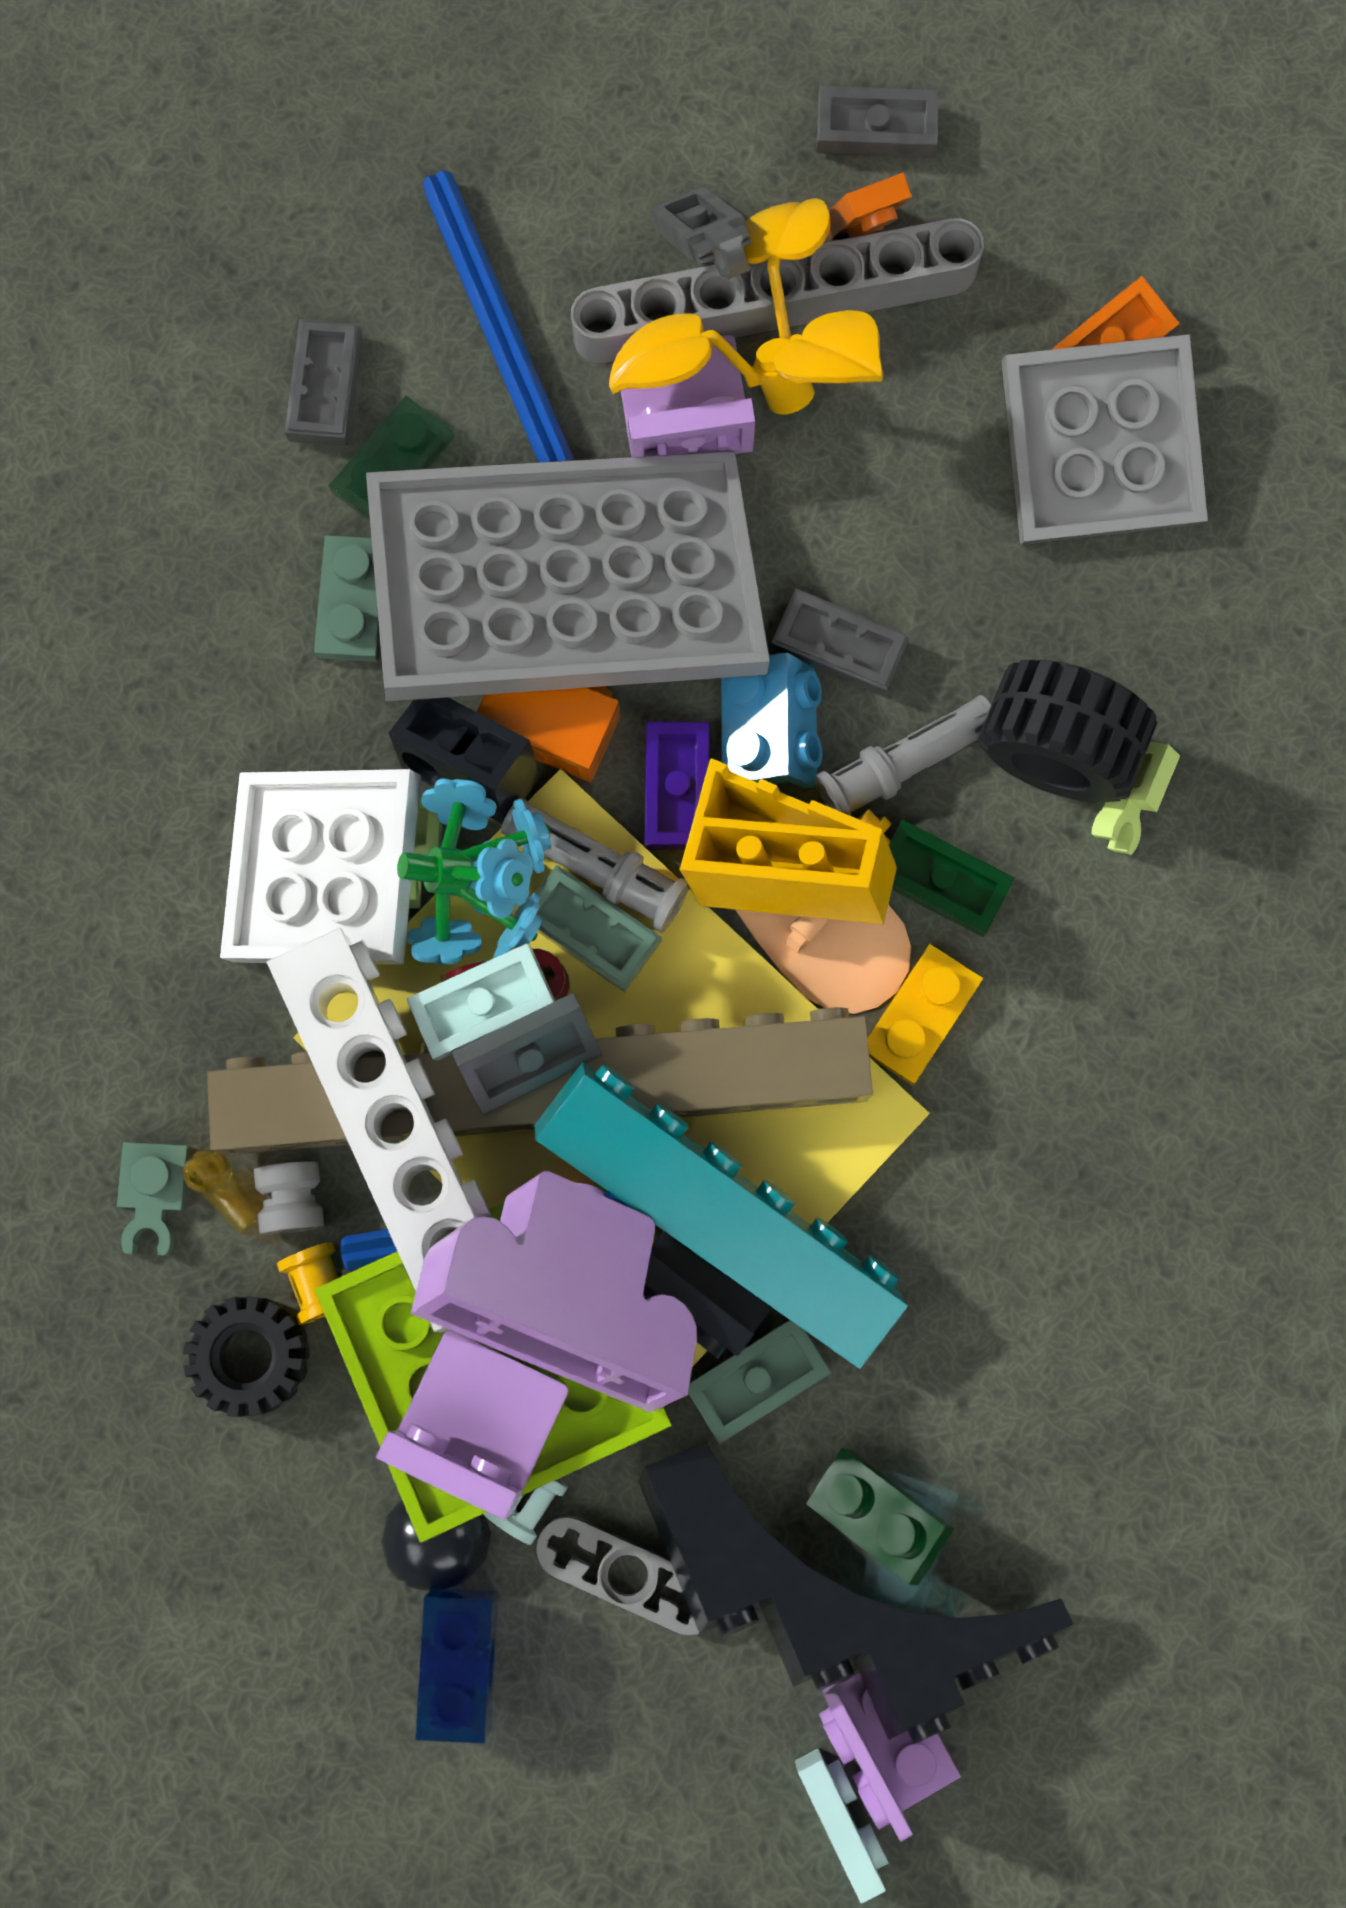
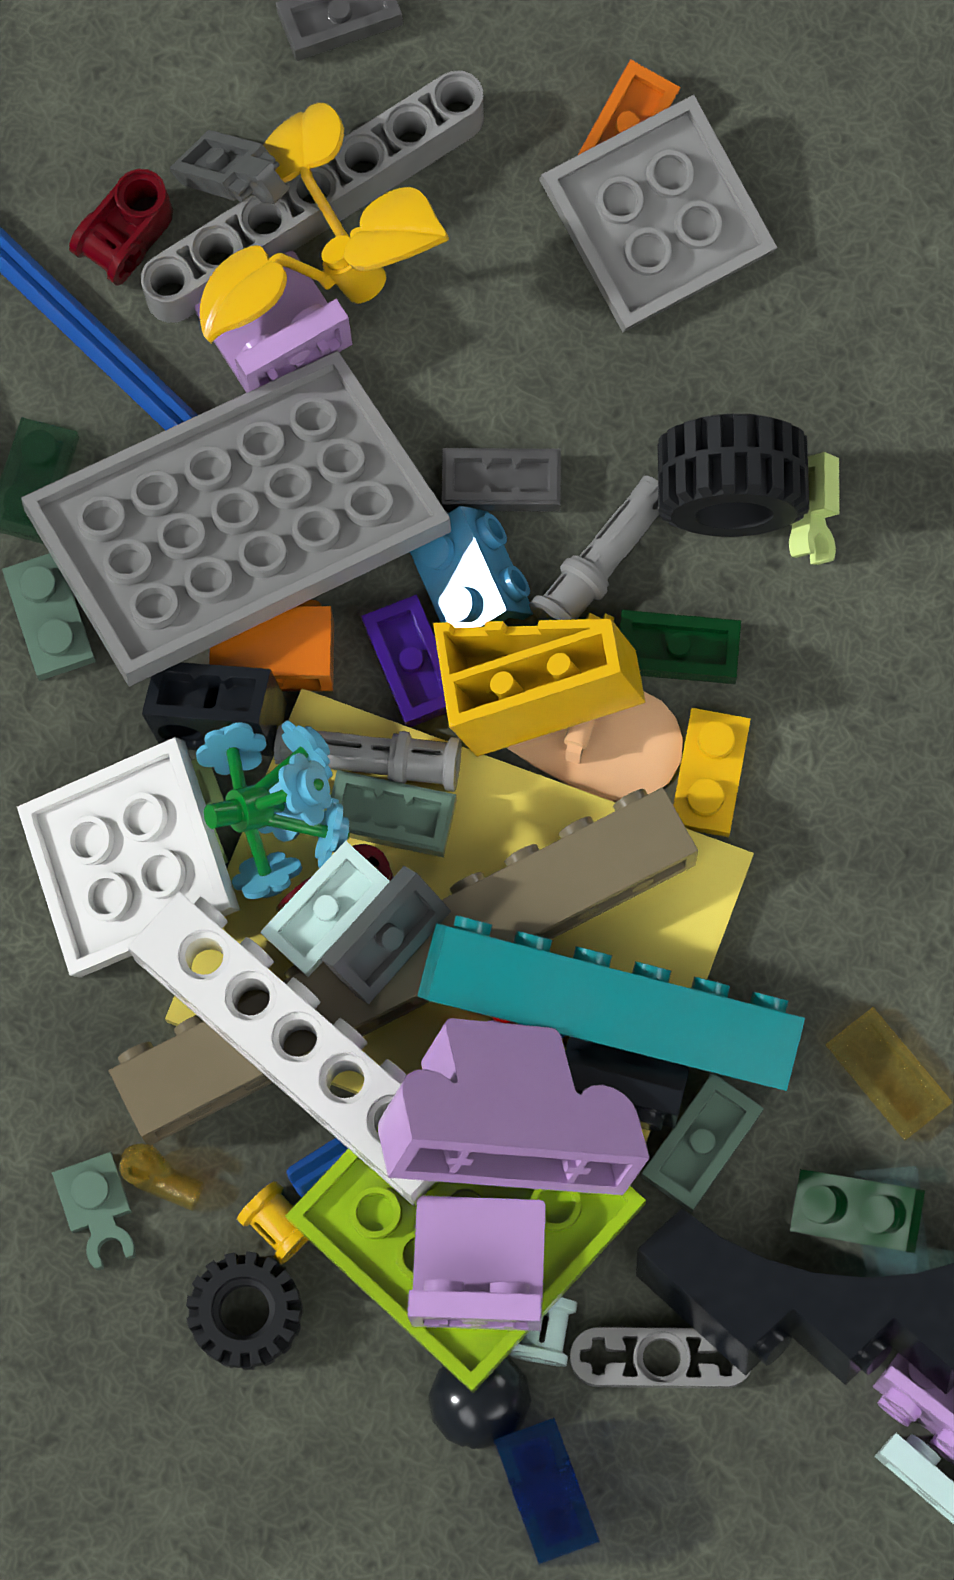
camera: 20 degrees left, 5 degrees down
(289, 1197) = (222, 1158): light grey wheel -> none
(575, 249) = (120, 236): none -> dark red piece
(869, 208) = (370, 93): orange plate -> none
(969, 1388) = (888, 1073): none -> clear yellow tile

